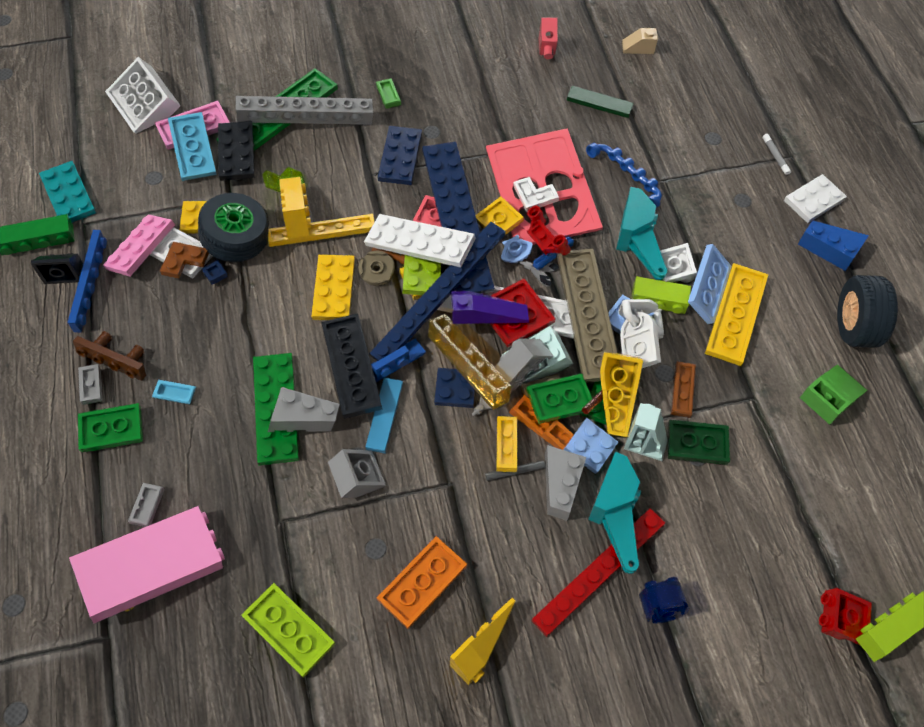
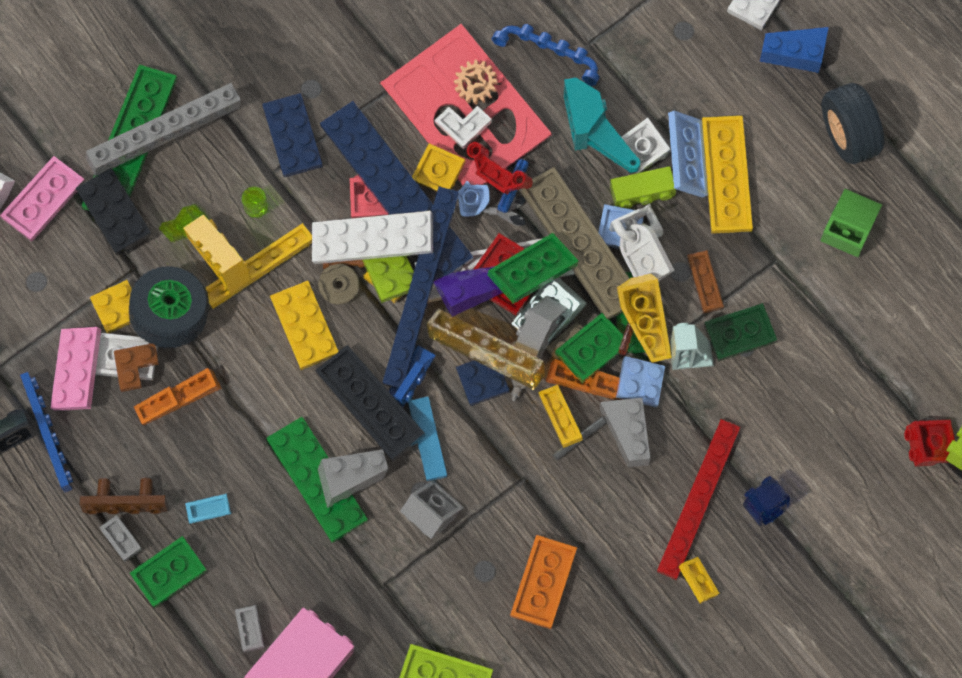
camera: 20 degrees left, 10 degrees up
(191, 146) = (62, 227): medium azure plate -> none
(197, 297) = (177, 397): none -> orange slope
(214, 272) = (173, 364): dark blue plate -> none
(344, 186) = (254, 202): none -> clear neon green piece
(388, 93) = (238, 59): bright green tile -> none
(474, 653) = (621, 625): yellow wedge -> none
(538, 311) = (532, 268): none -> green plate
(559, 167) = (477, 74): none -> light nougat gear
(567, 646) = (698, 580): none -> yellow plate
(614, 510) = (687, 434): teal slope -> none

